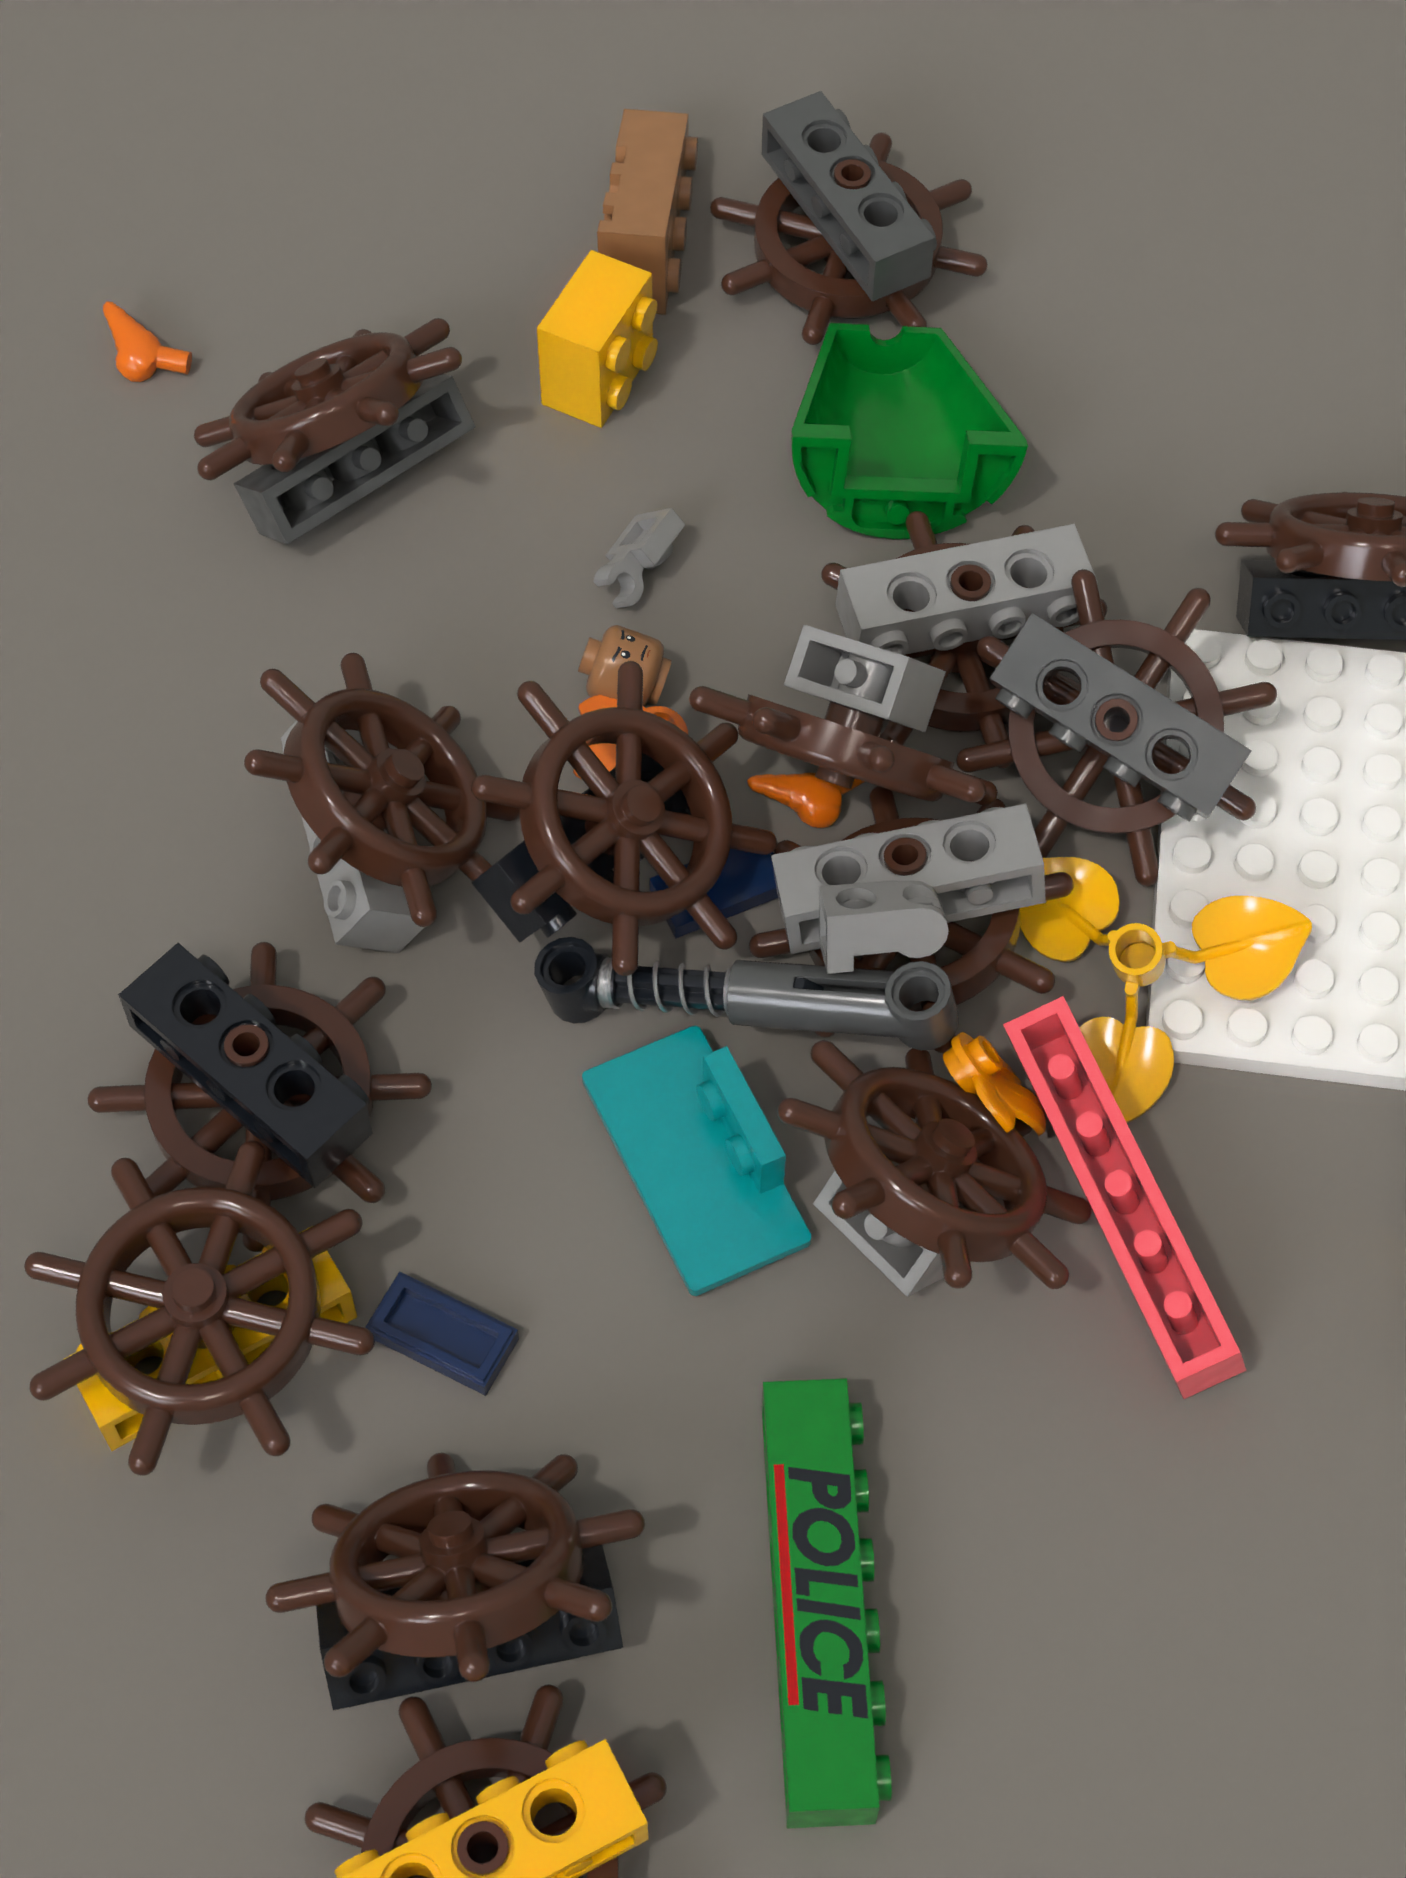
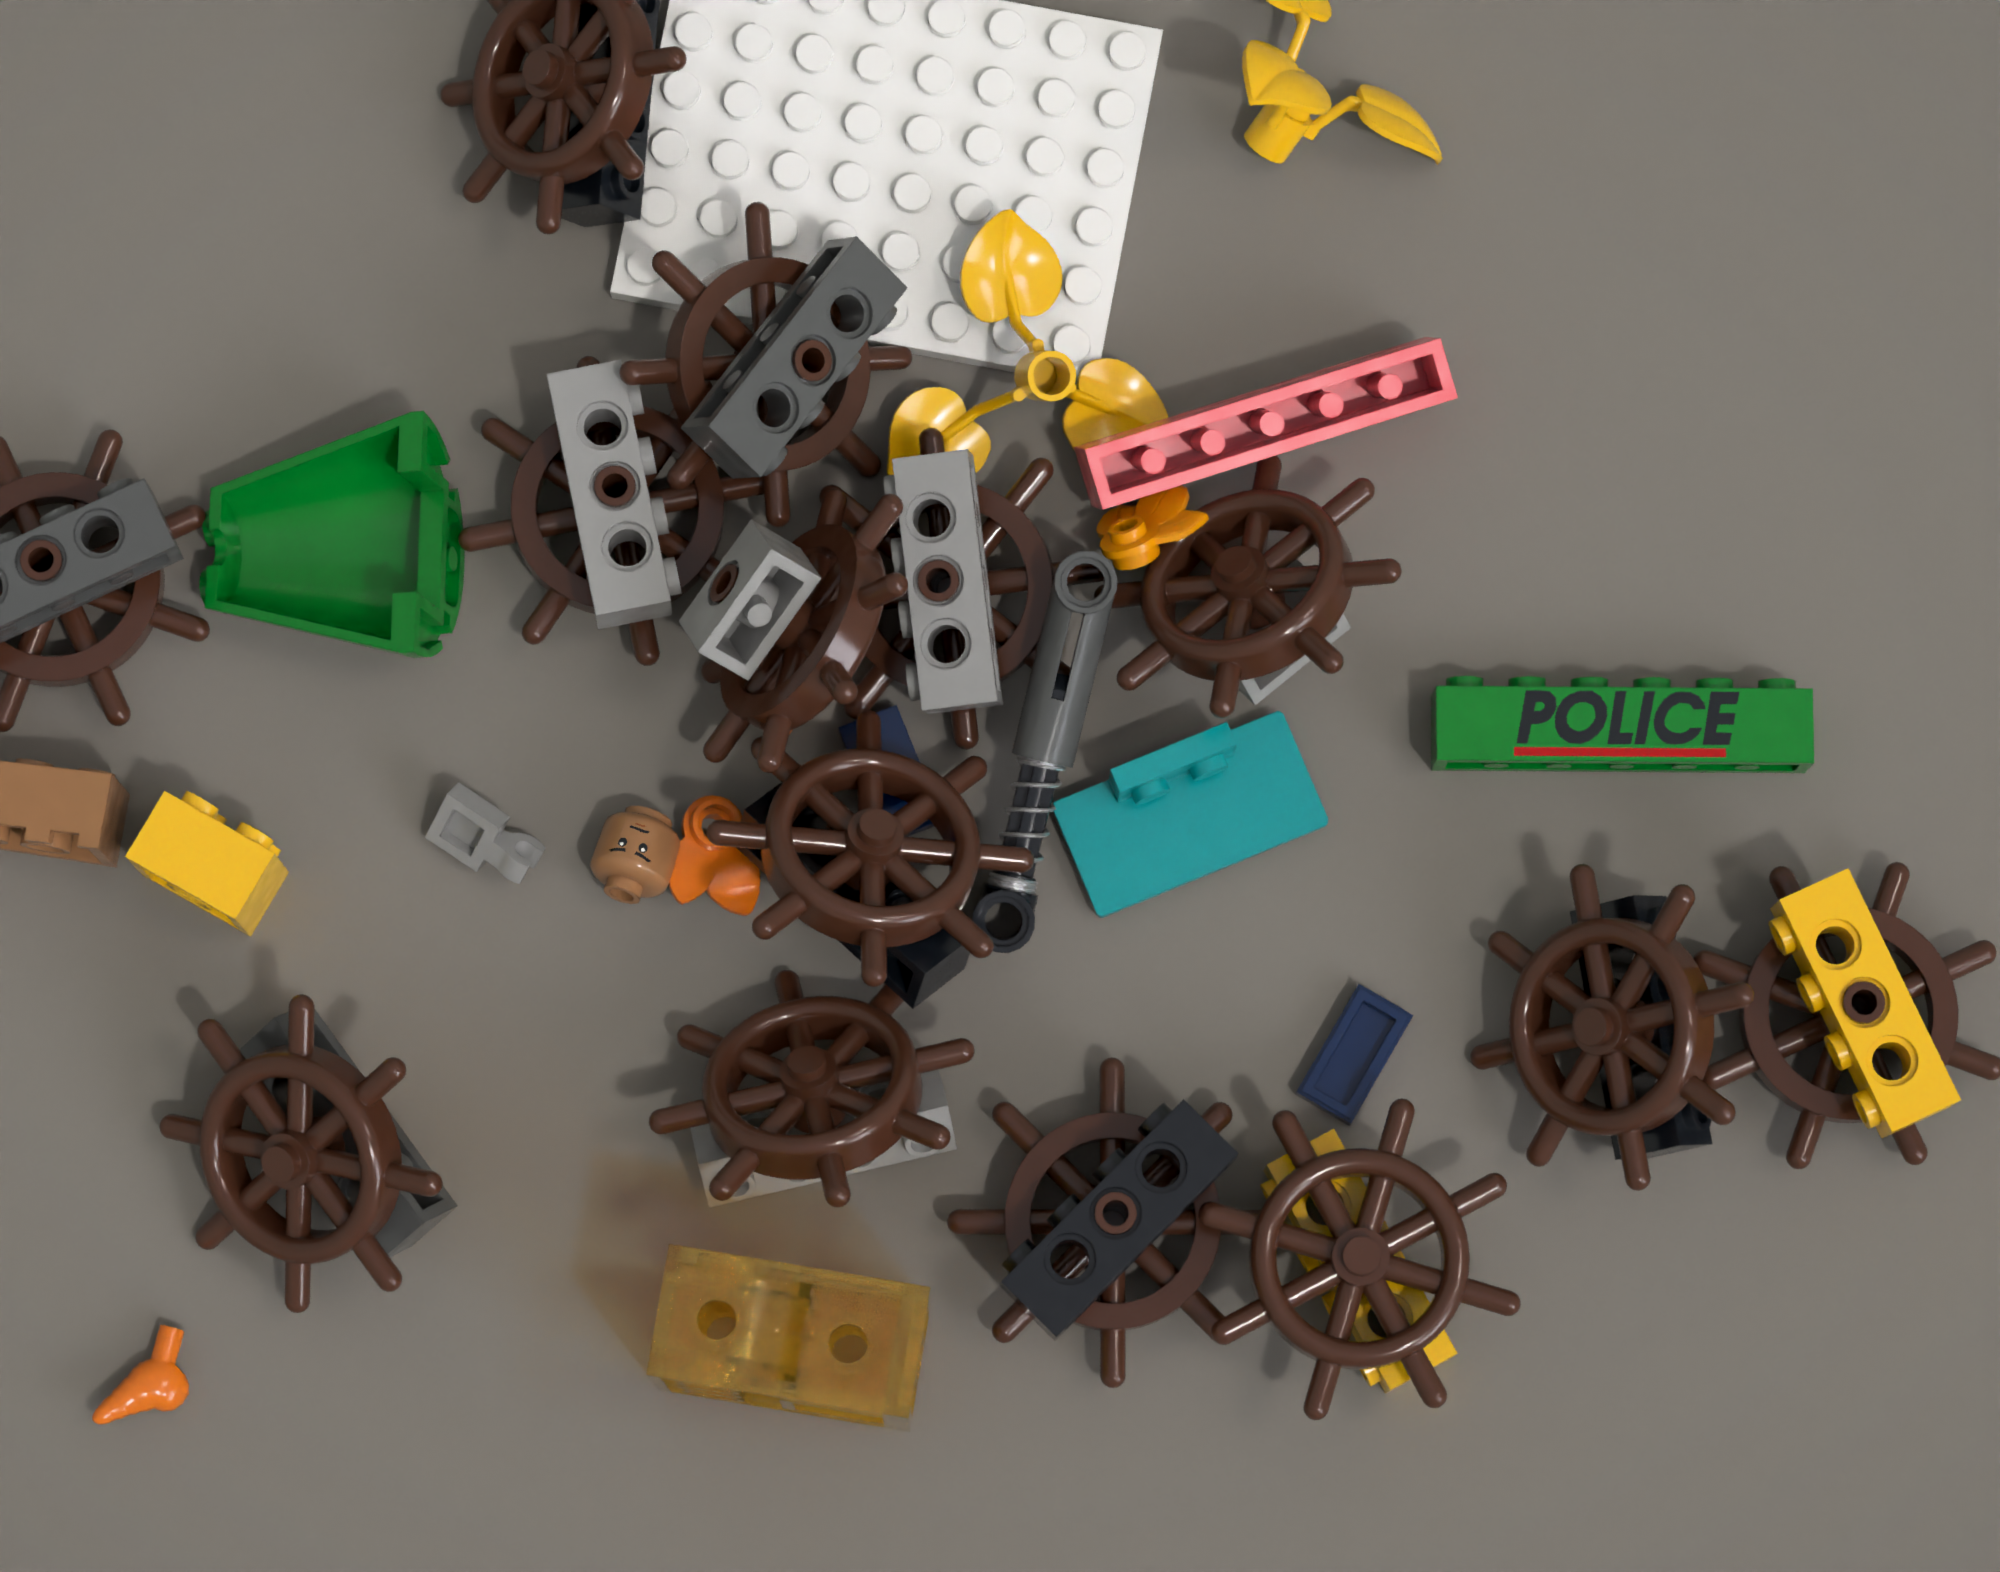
camera: 90 degrees left, 20 degrees up
(127, 768) = (786, 1337): none -> clear yellow piece
(879, 920) = (1015, 611): light grey leg -> none

